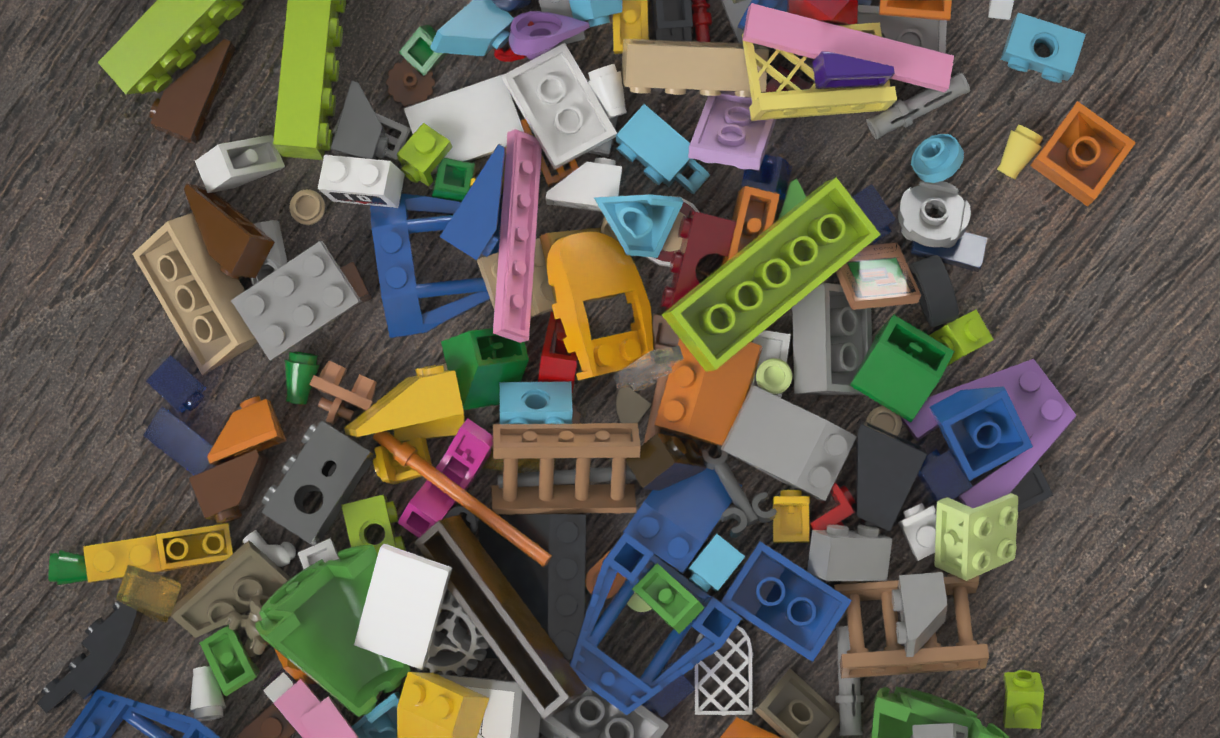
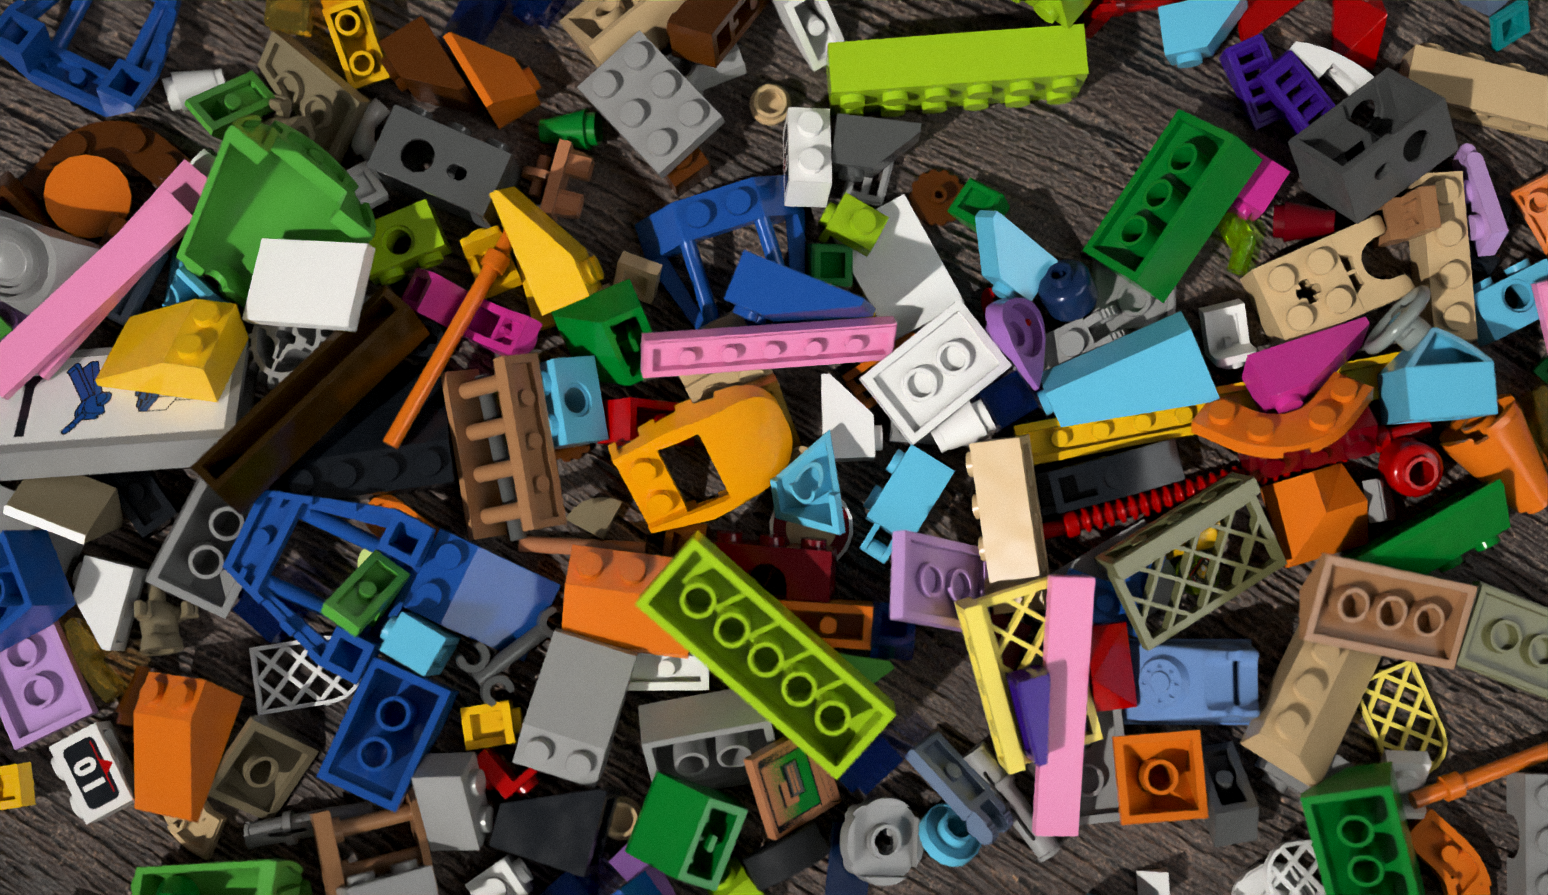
camera: 85 degrees right, 0 degrees up
(431, 337) = (642, 273): none -> tan plate
(592, 51) = (1008, 401): none -> clear blue brick
(648, 367) = (637, 528): clear plate -> none
(666, 461) = (530, 566): dark brown slope -> none
(774, 376) = (653, 678): yellowish green tile -> none
(901, 143) = (960, 787): none -> sand blue hinge

